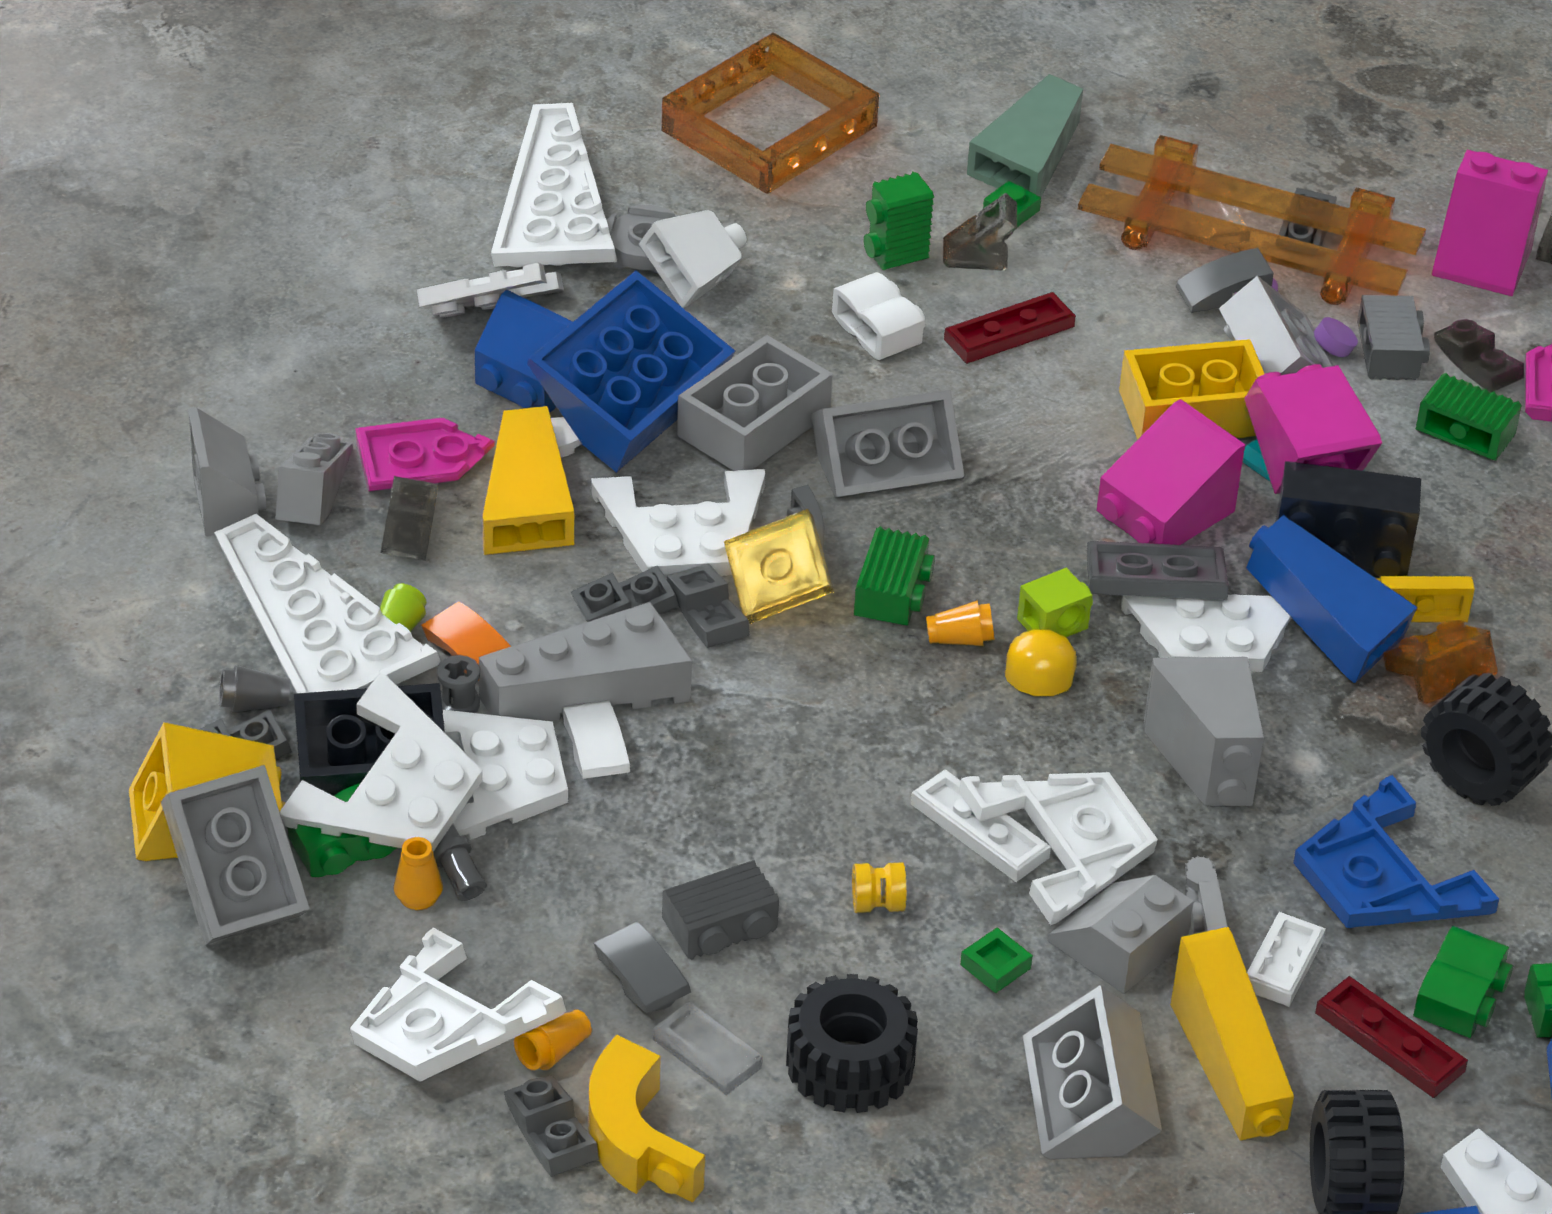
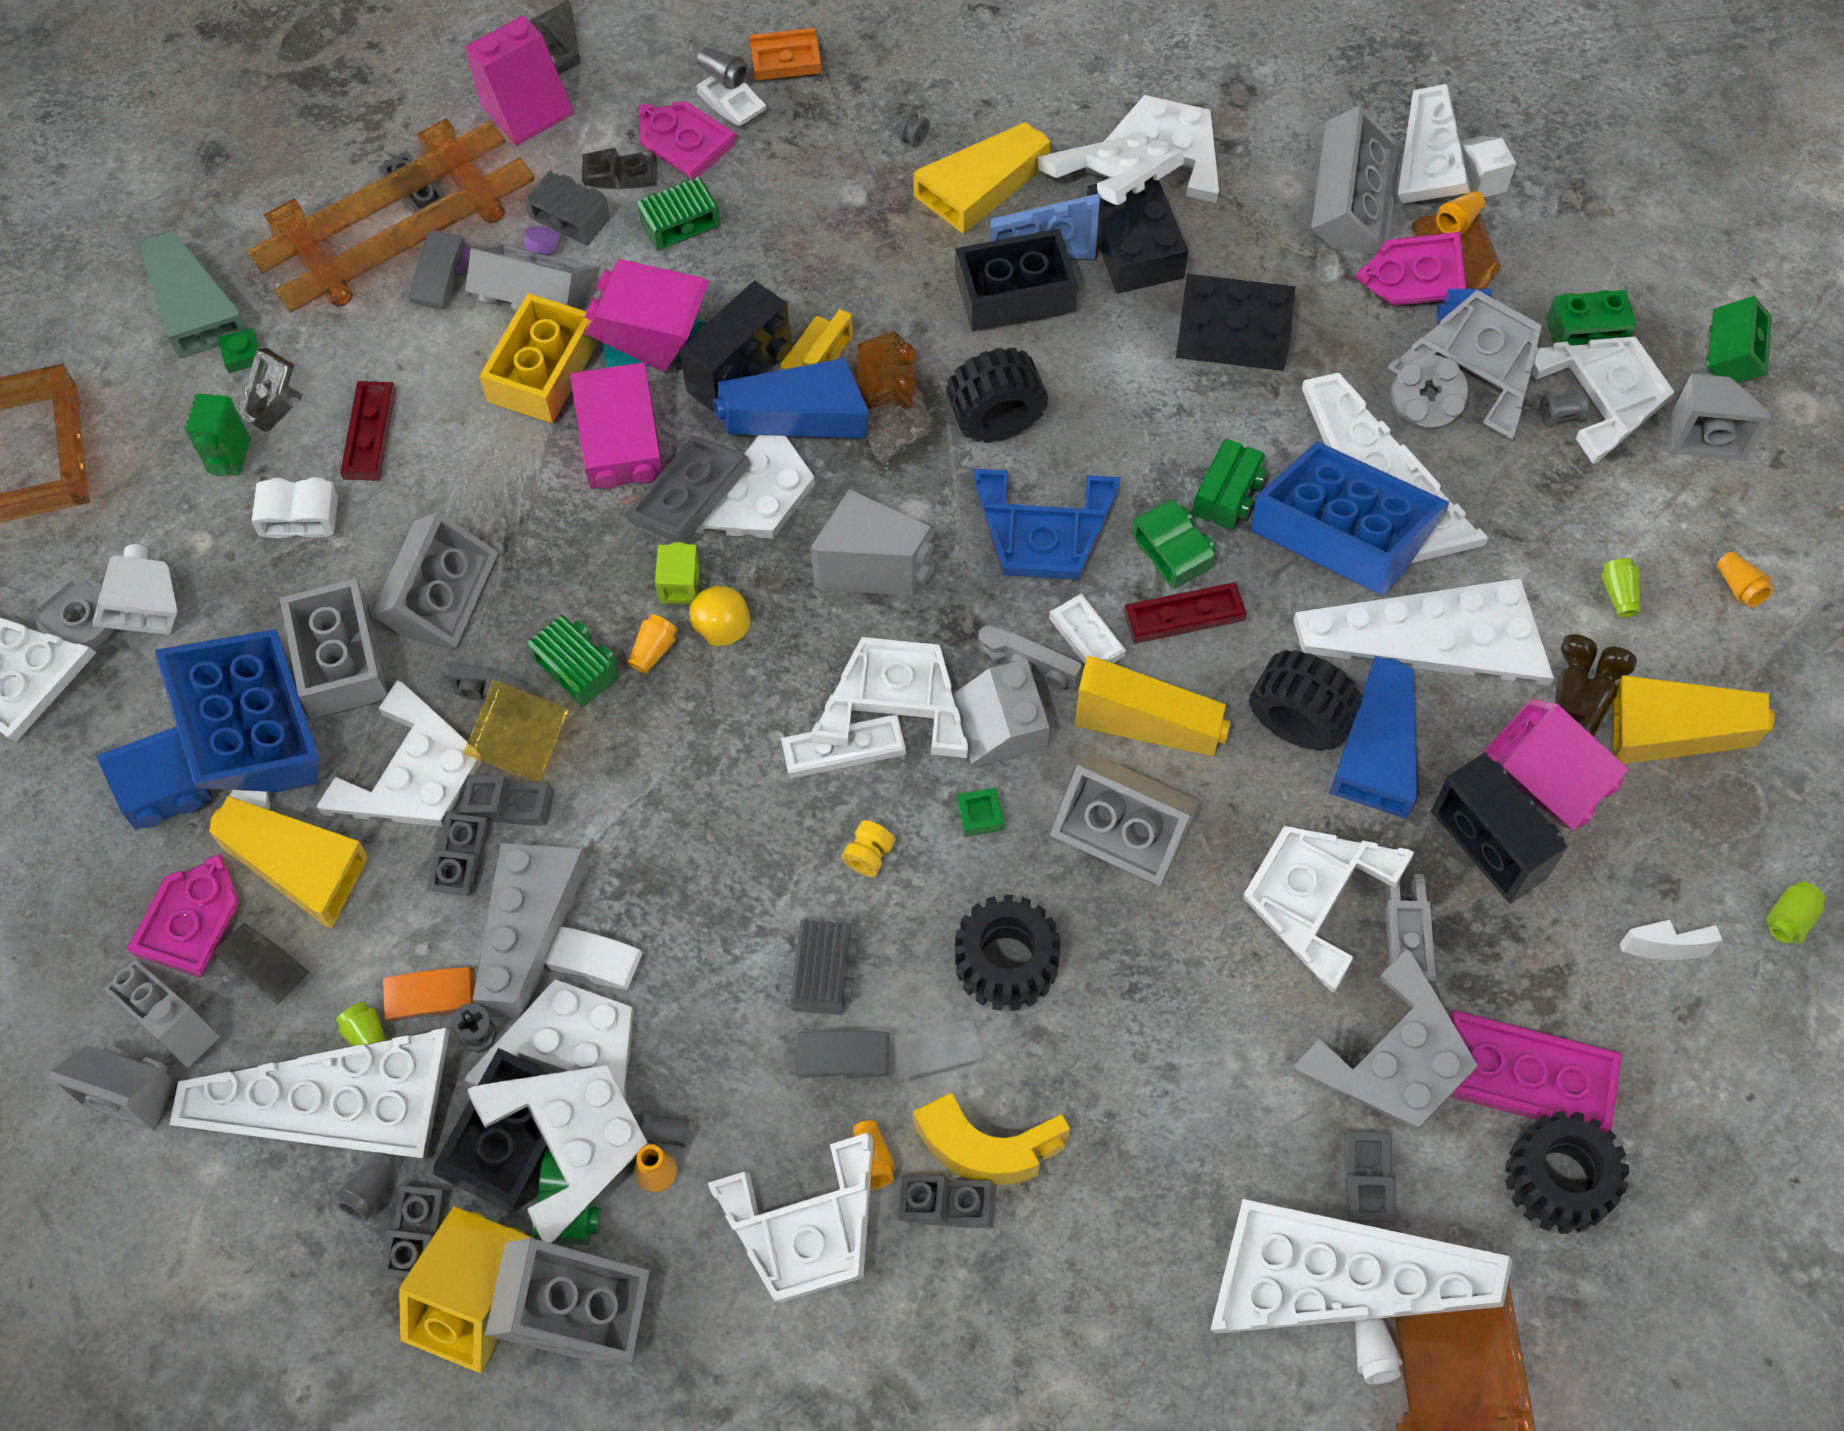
camera: 55 degrees left, 20 degrees up
(484, 292) = (64, 769): white wing -> none

